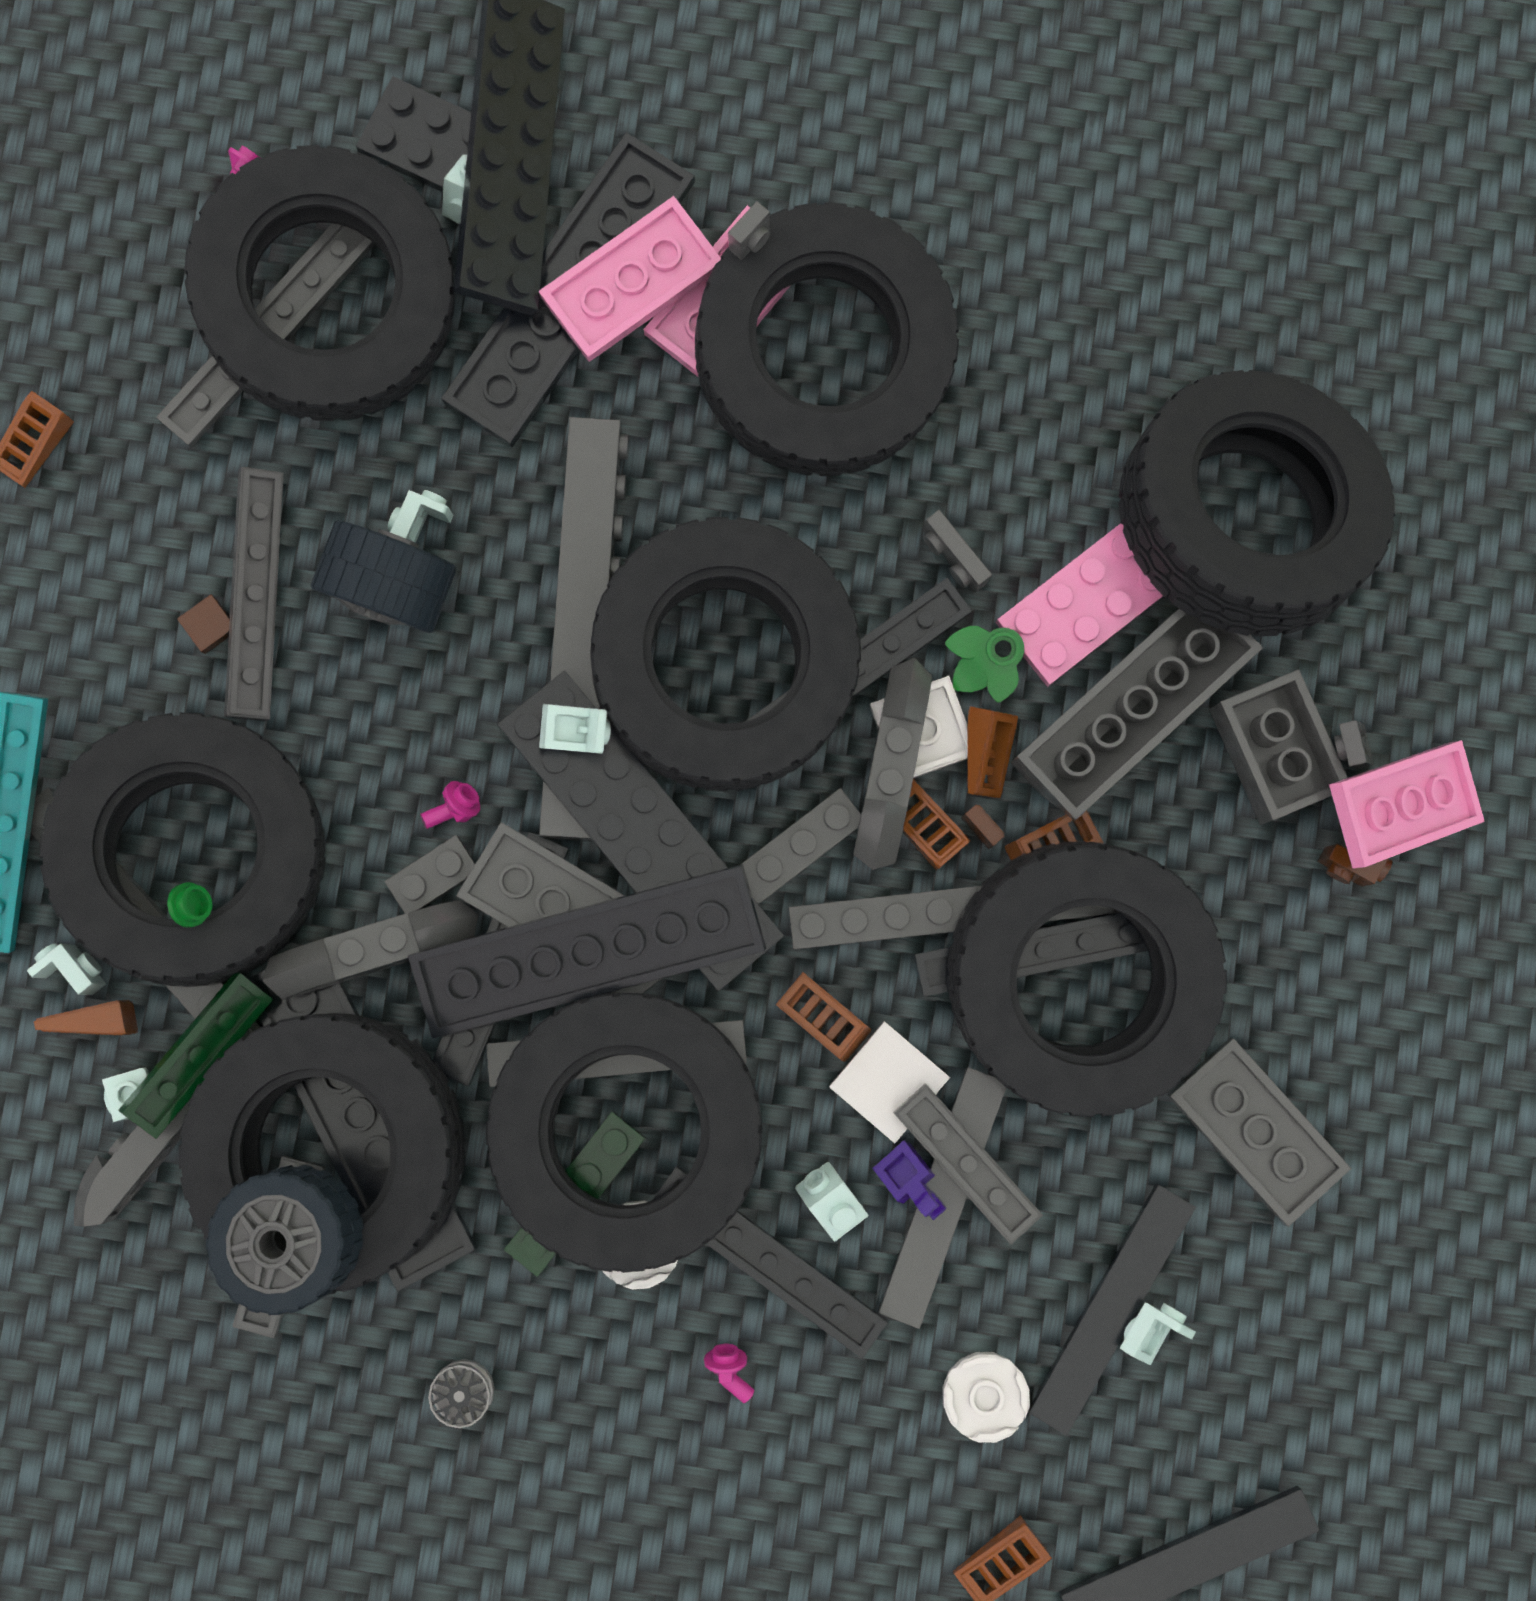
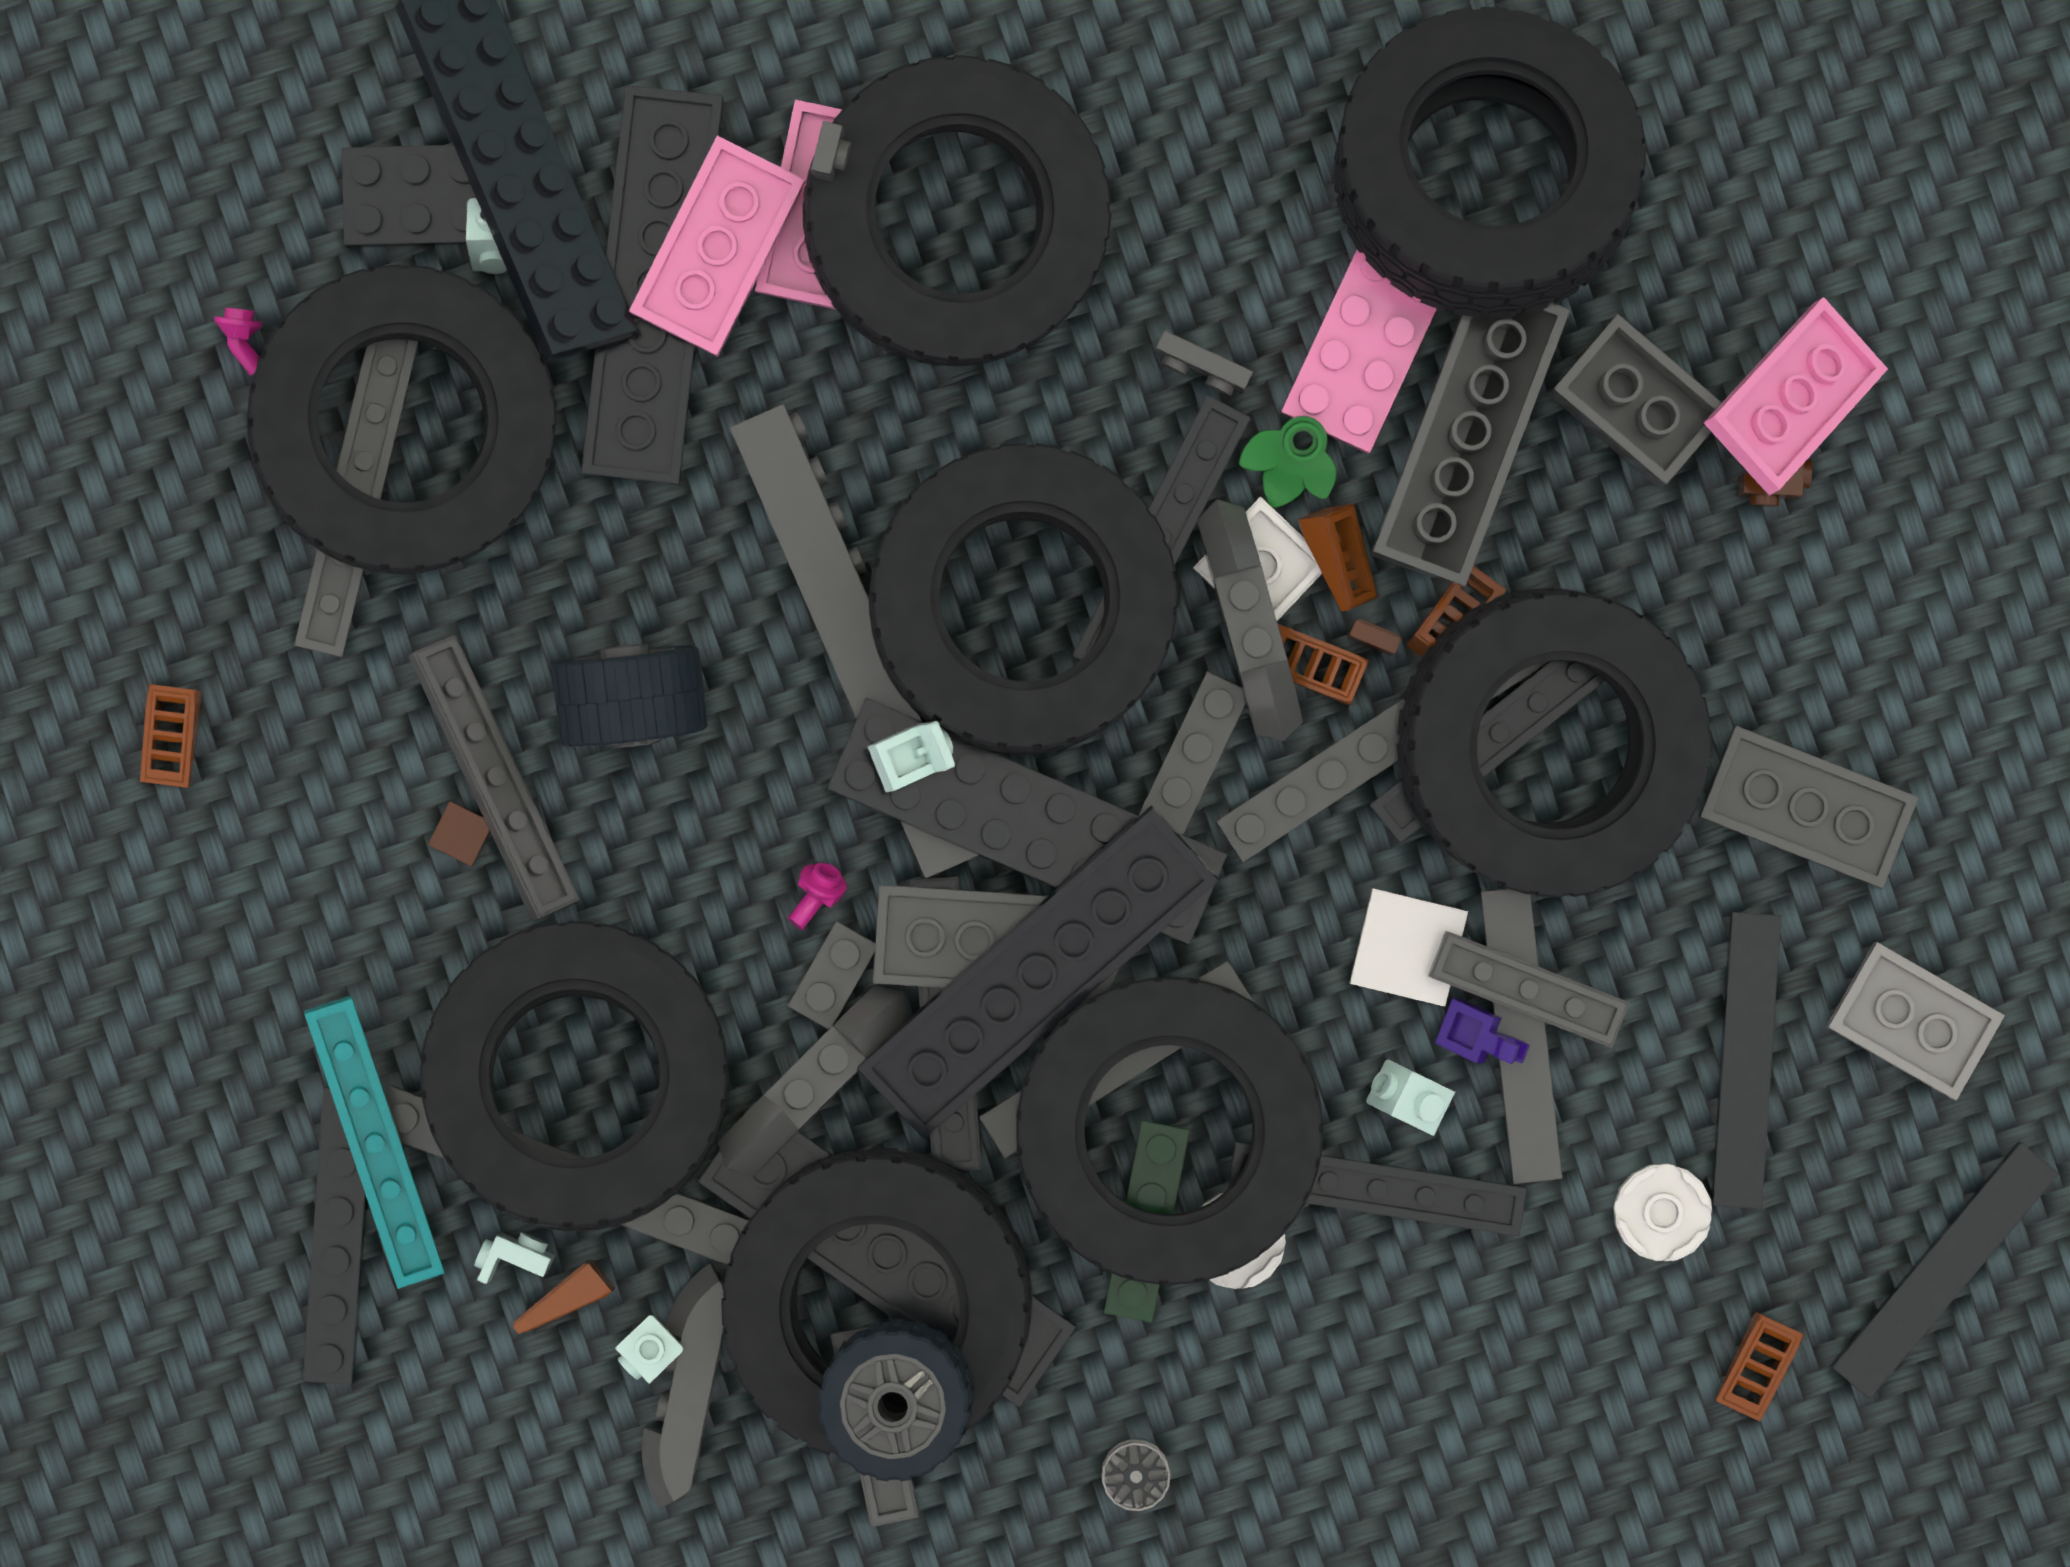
camera: 25 degrees left, 5 degrees up
(183, 1066) = (698, 1274): dark green plate -> none
(189, 904) = (623, 1127): green plate -> none
(412, 515) = (614, 620): light aqua bracket -> none
(725, 1362) = (1384, 1310): dark pink plate -> none
(852, 1040) = (1350, 922): dark orange slope -> none
(1149, 1329) = (1793, 1062): light aqua bracket -> none
(1262, 1346) = (1915, 1021): none -> light grey plate
(1353, 745) = (1714, 361): dark grey plate -> none

